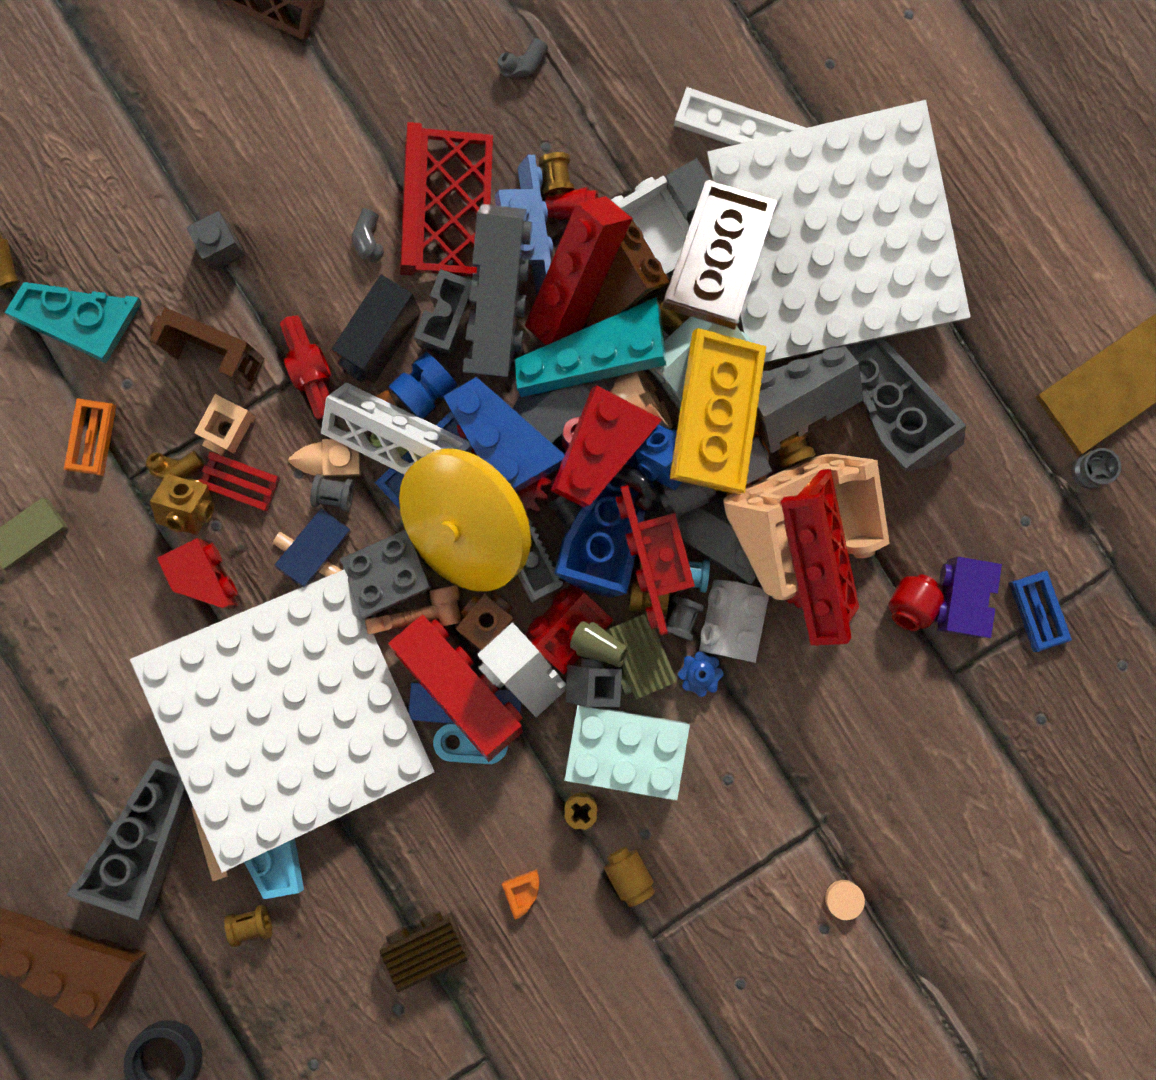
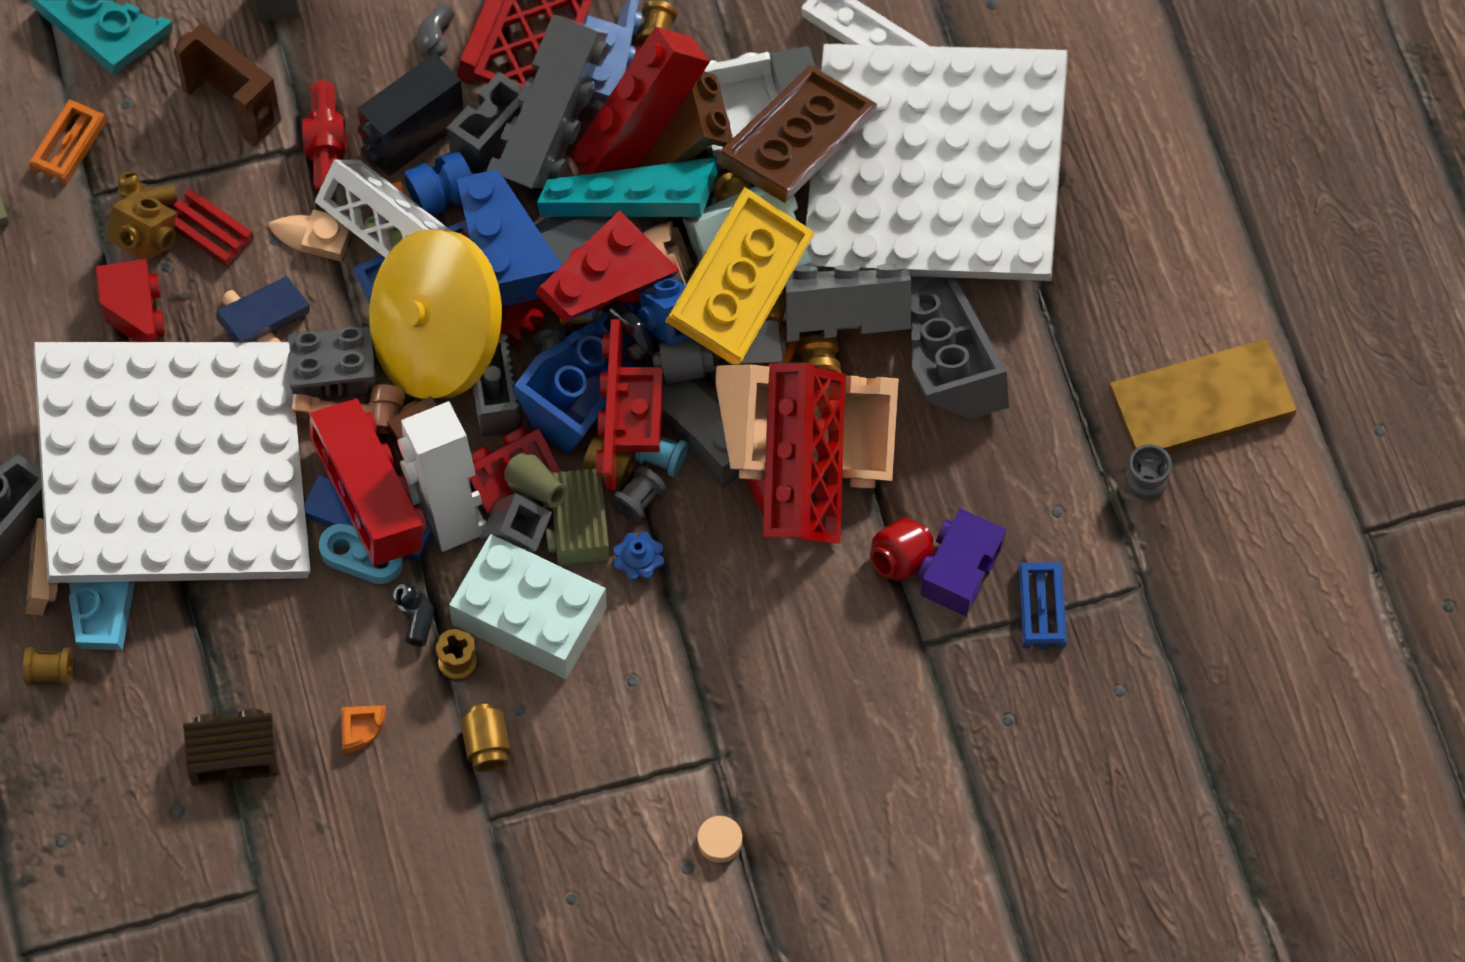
camera: 15 degrees right, 20 degrees down
(216, 416) = (215, 165): light nougat brick -> none
(332, 493) = (304, 263): dark grey bush -> none
(535, 777) = (417, 610): none -> black arm
(734, 620) = (696, 513): white bracket -> none

